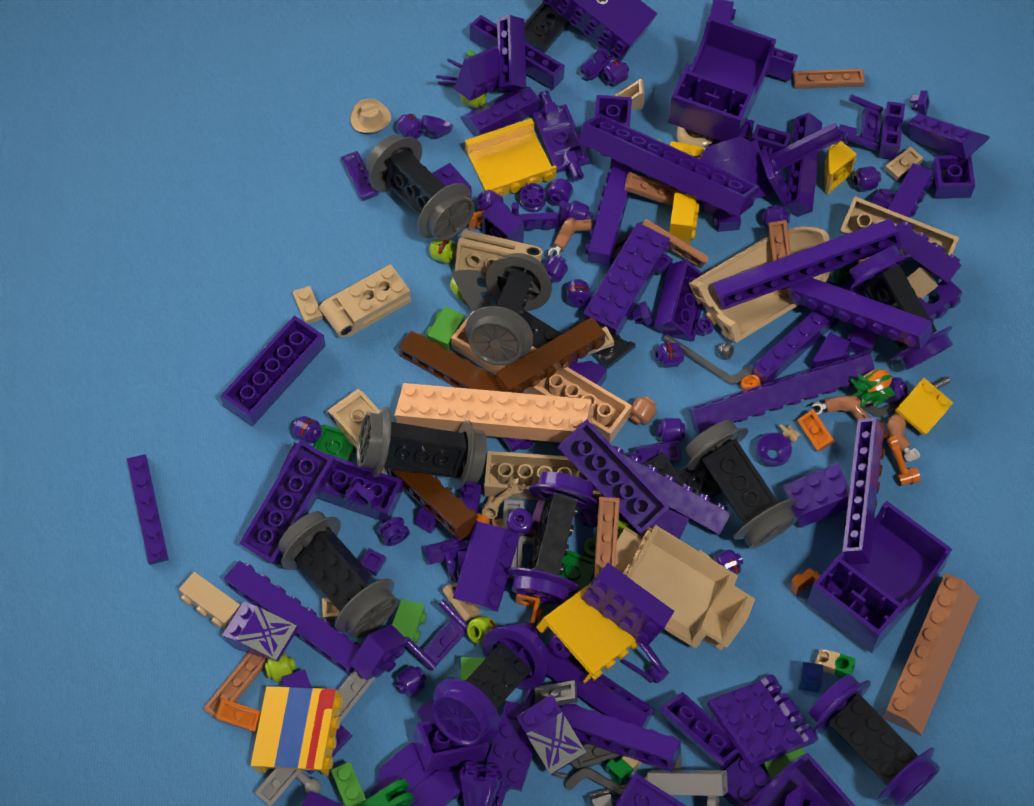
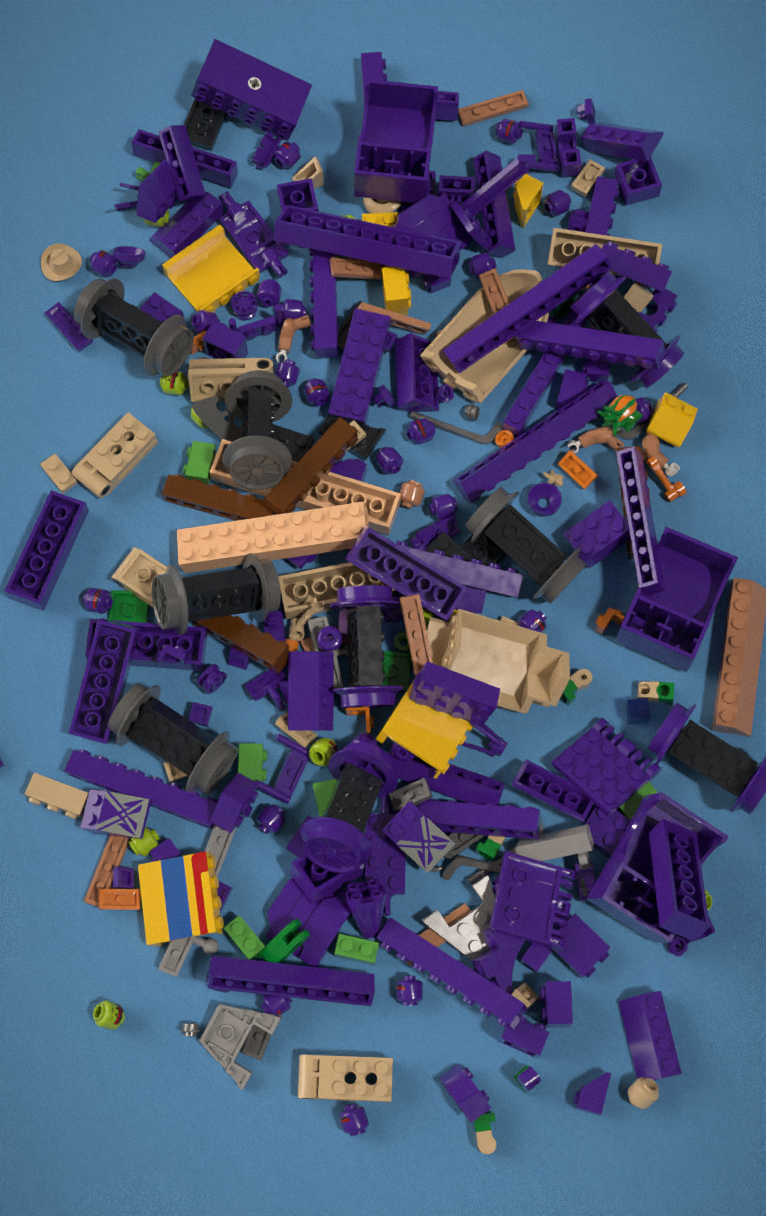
camera: 15 degrees left, 10 degrees up
(248, 695) = (123, 878): none -> dark purple plate
(630, 374) = (389, 460): none -> dark purple head
(752, 634) = (578, 681): none -> leg
(837, 102) = (508, 131): none -> dark purple head

